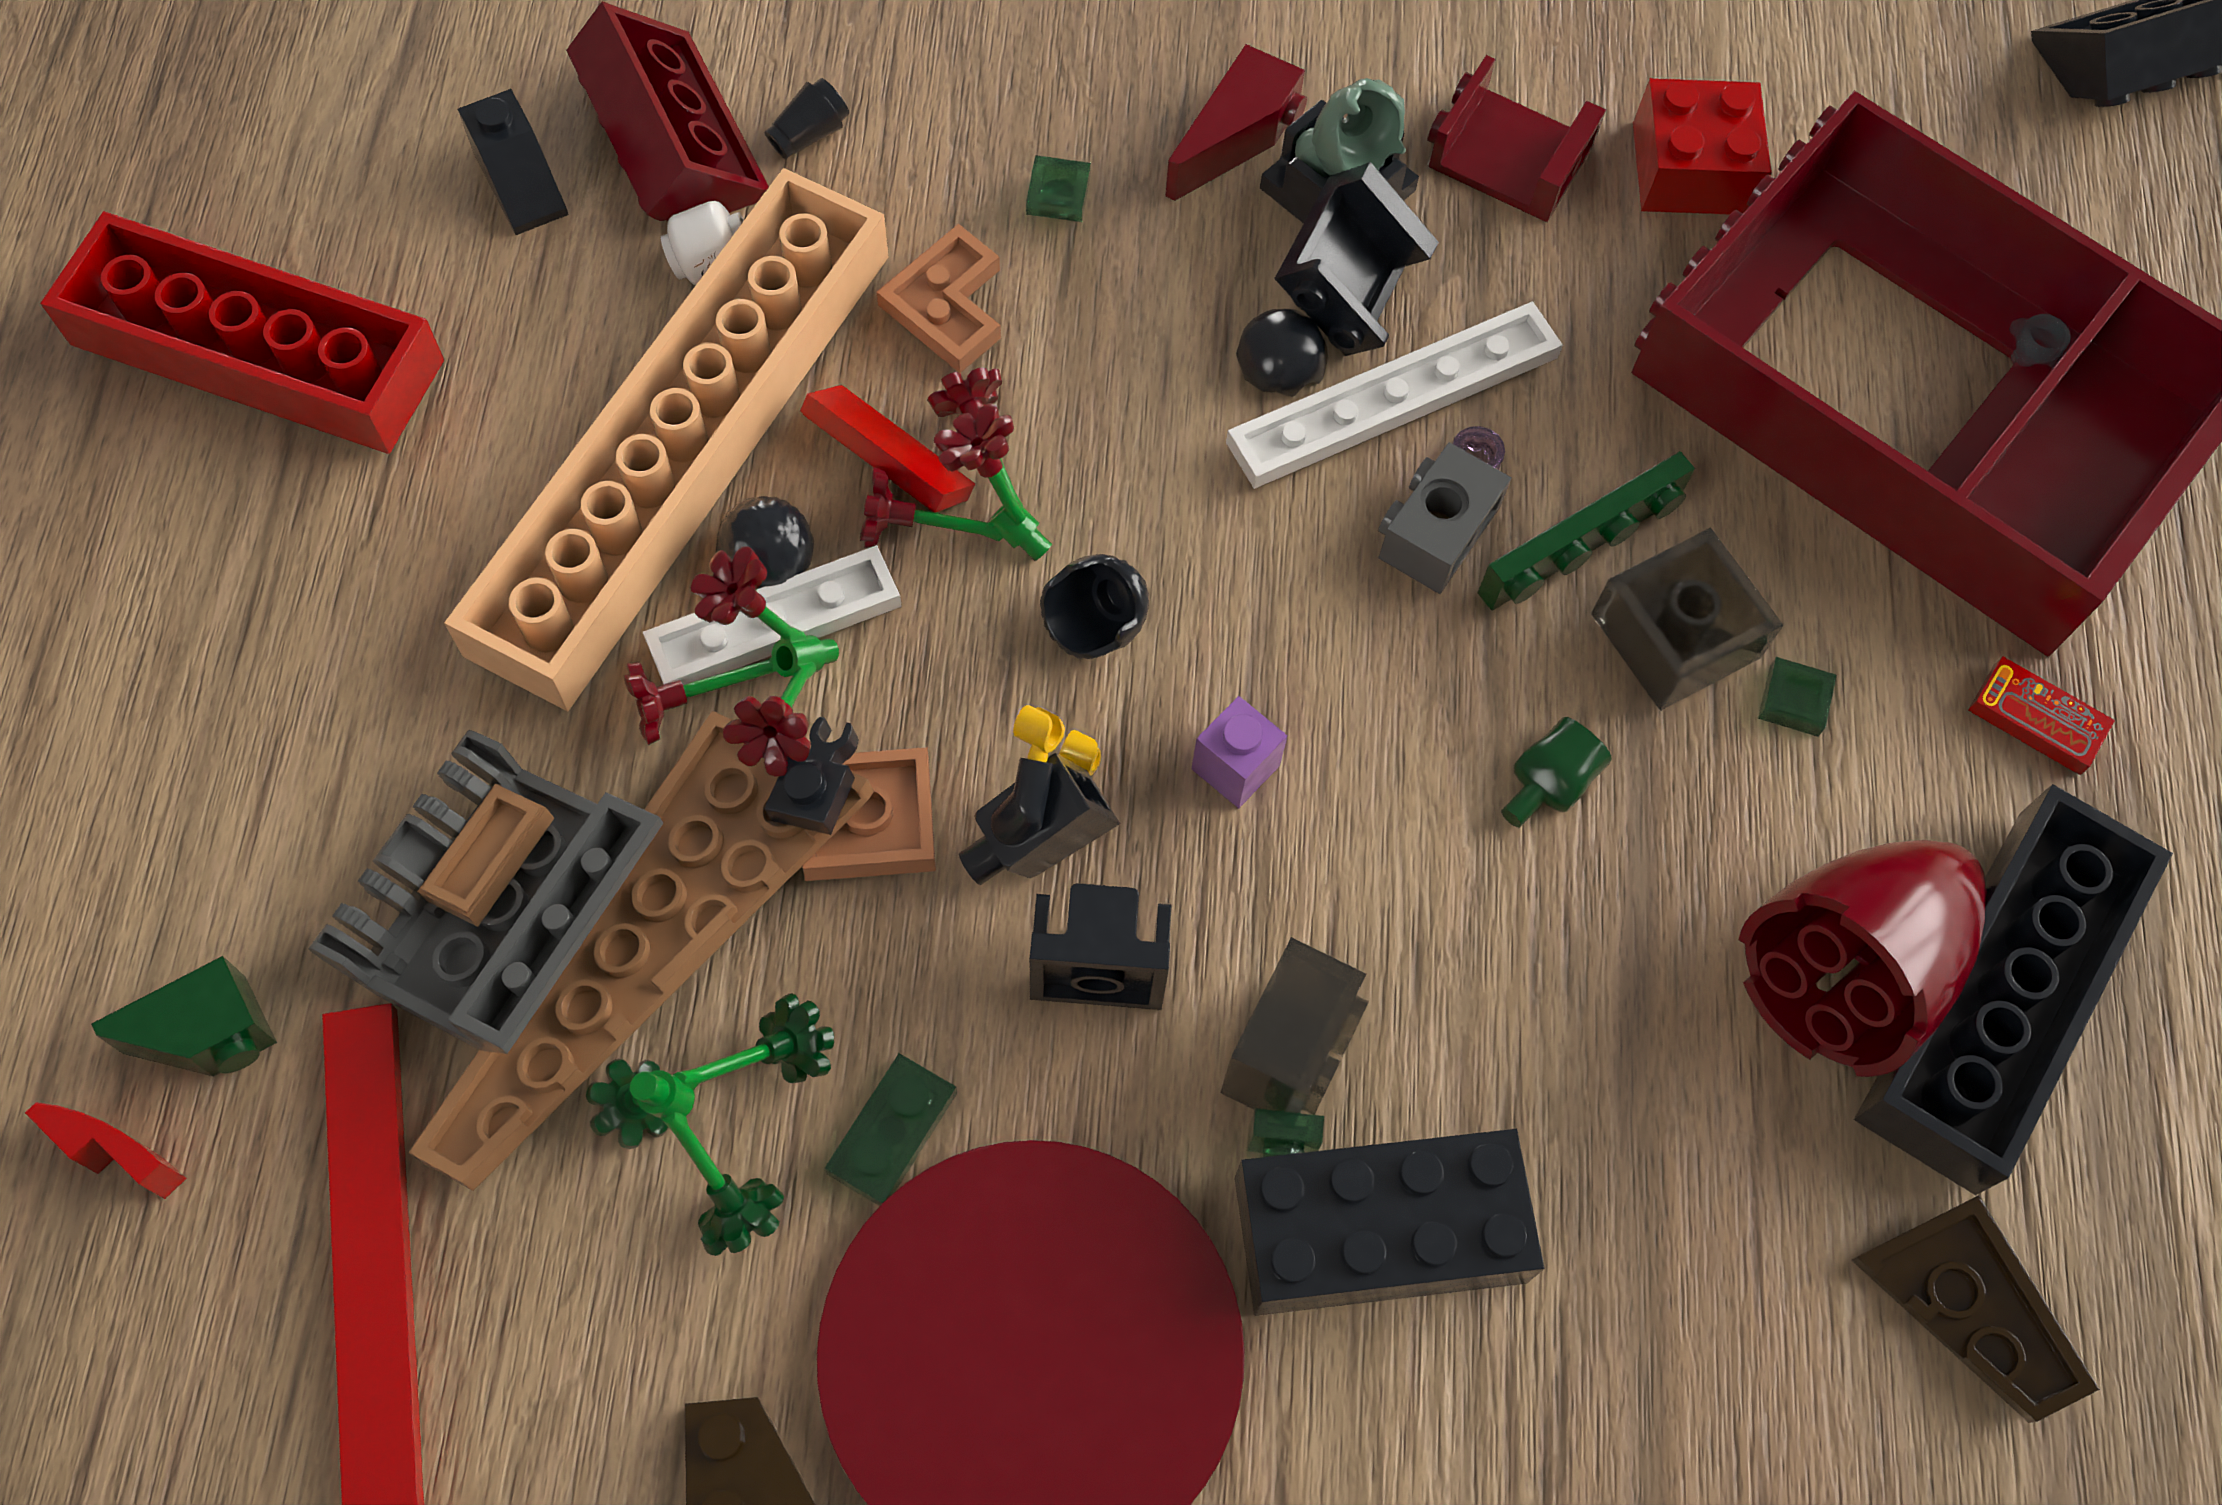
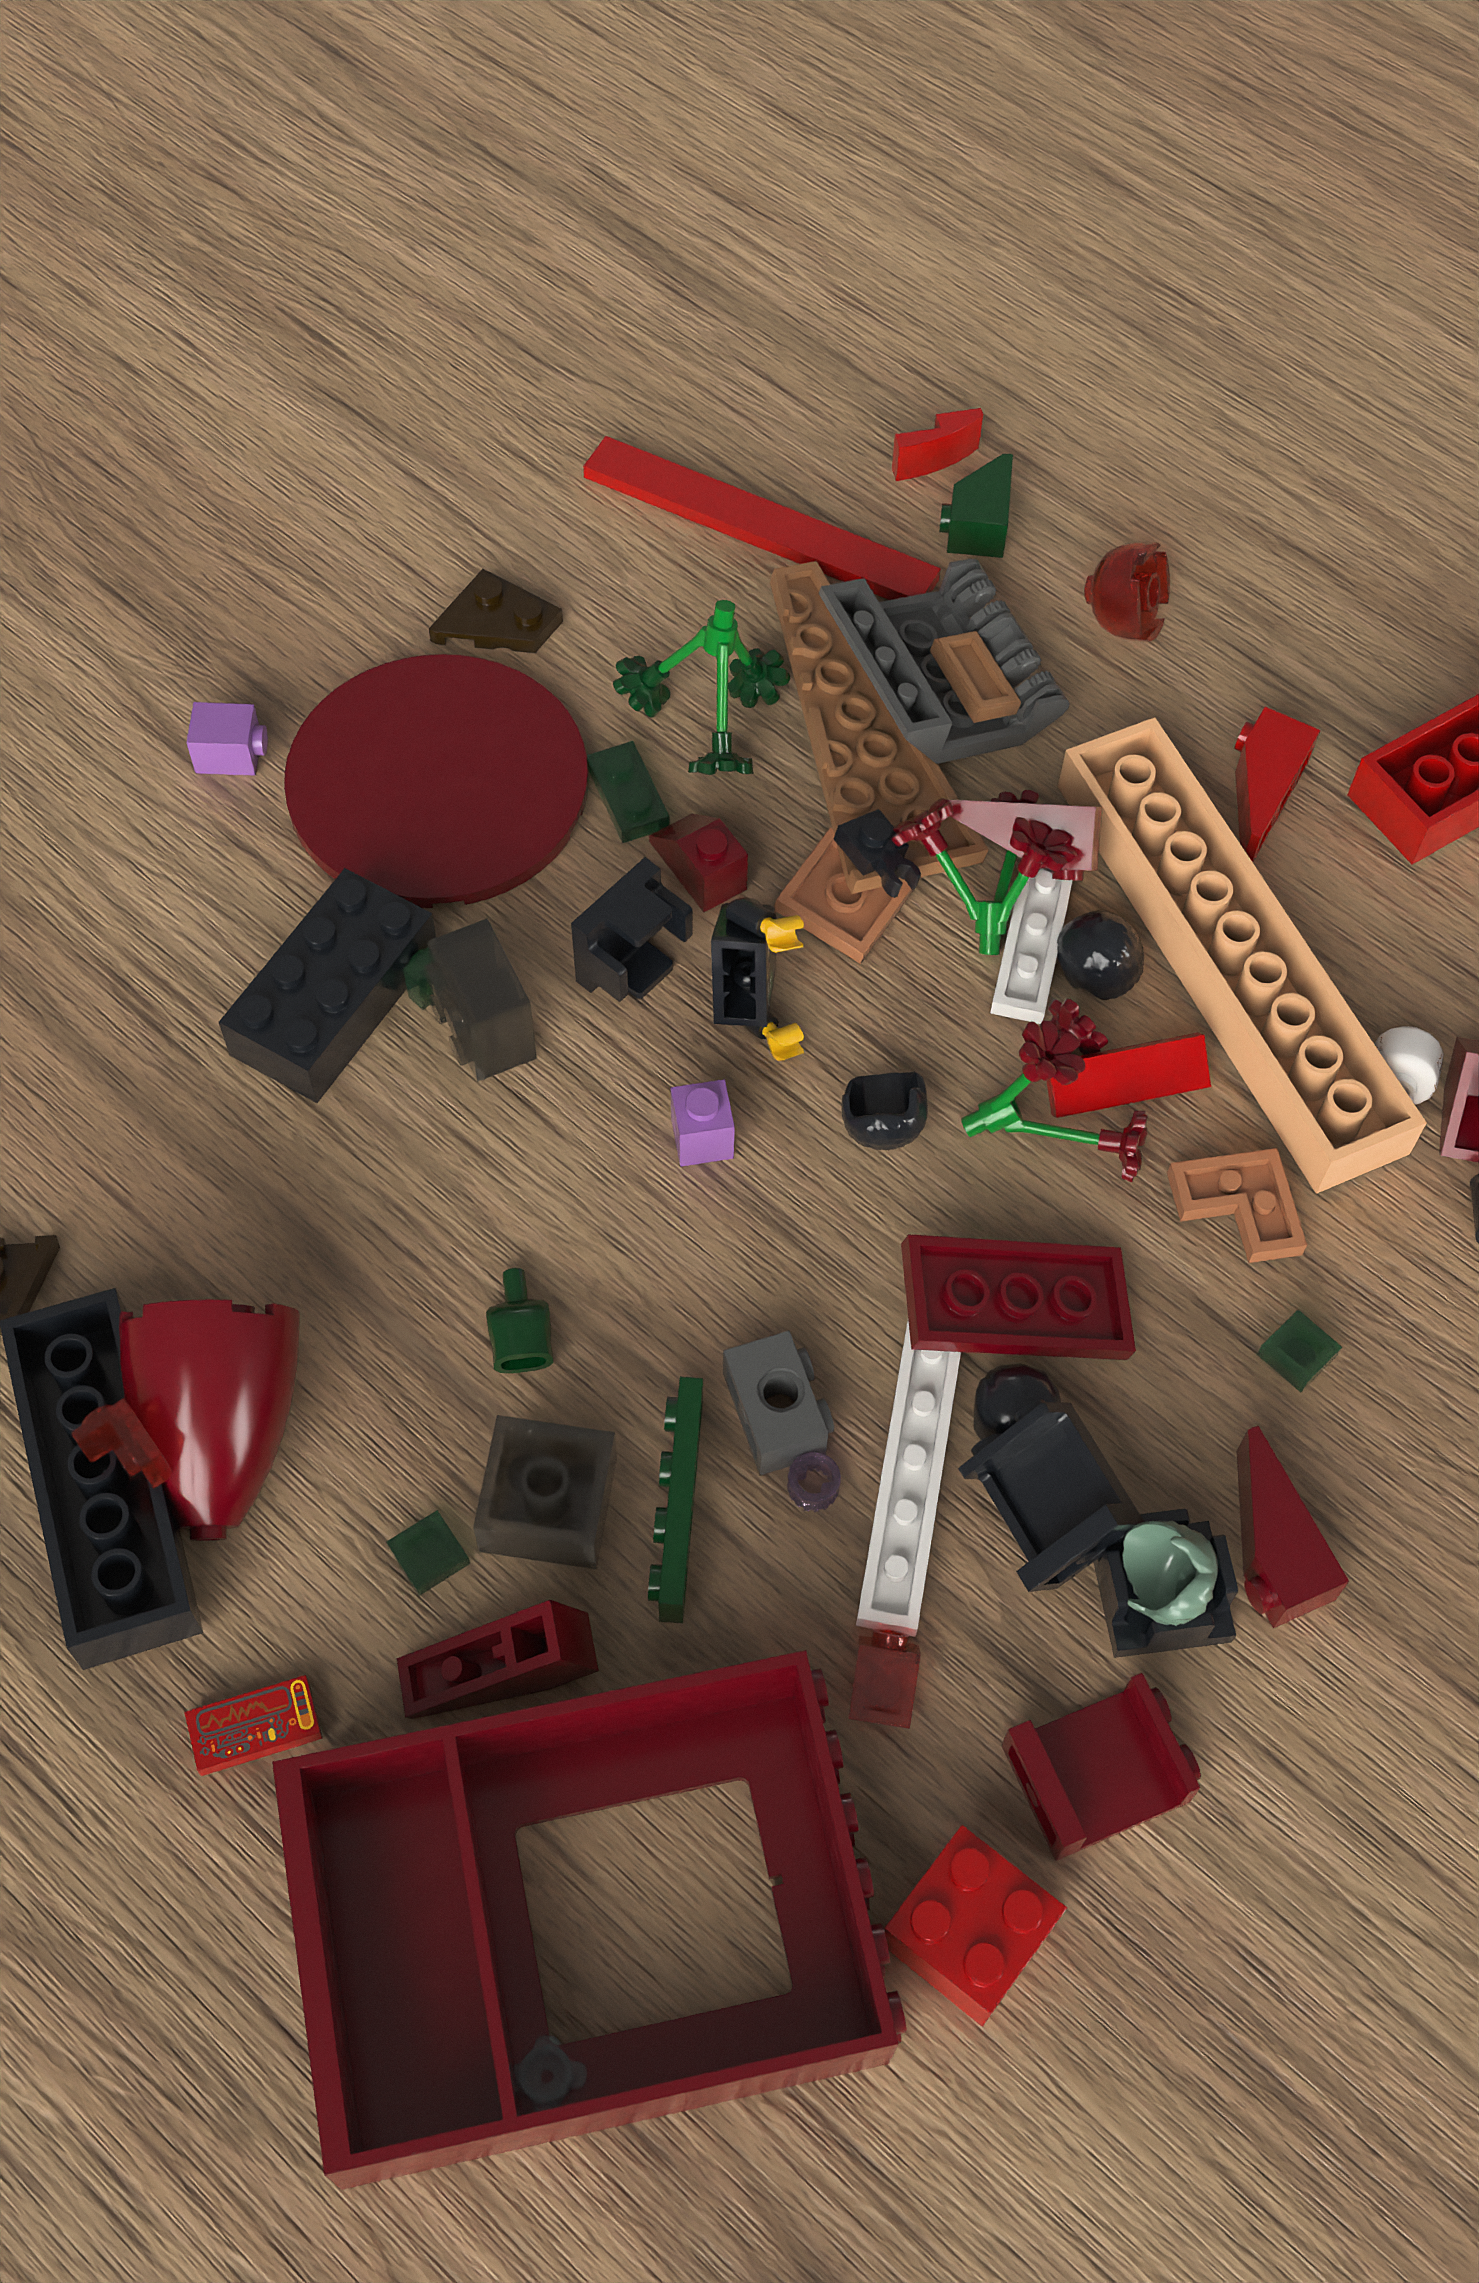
camera: 130 degrees right, 5 degrees down
(241, 782) = (1128, 590): none -> clear red cylinder
(424, 520) = (1268, 769): none -> red slope
(681, 655) = (997, 819): none -> slope
(926, 983) = (703, 858): none -> dark red slope
(1200, 391) = (1016, 1298): none -> dark red plate
(1583, 303) = (885, 1679): none -> clear red bracket
(1830, 562) = (499, 1660): none -> dark red slope
(2003, 932) = (120, 1430): none -> clear red bracket

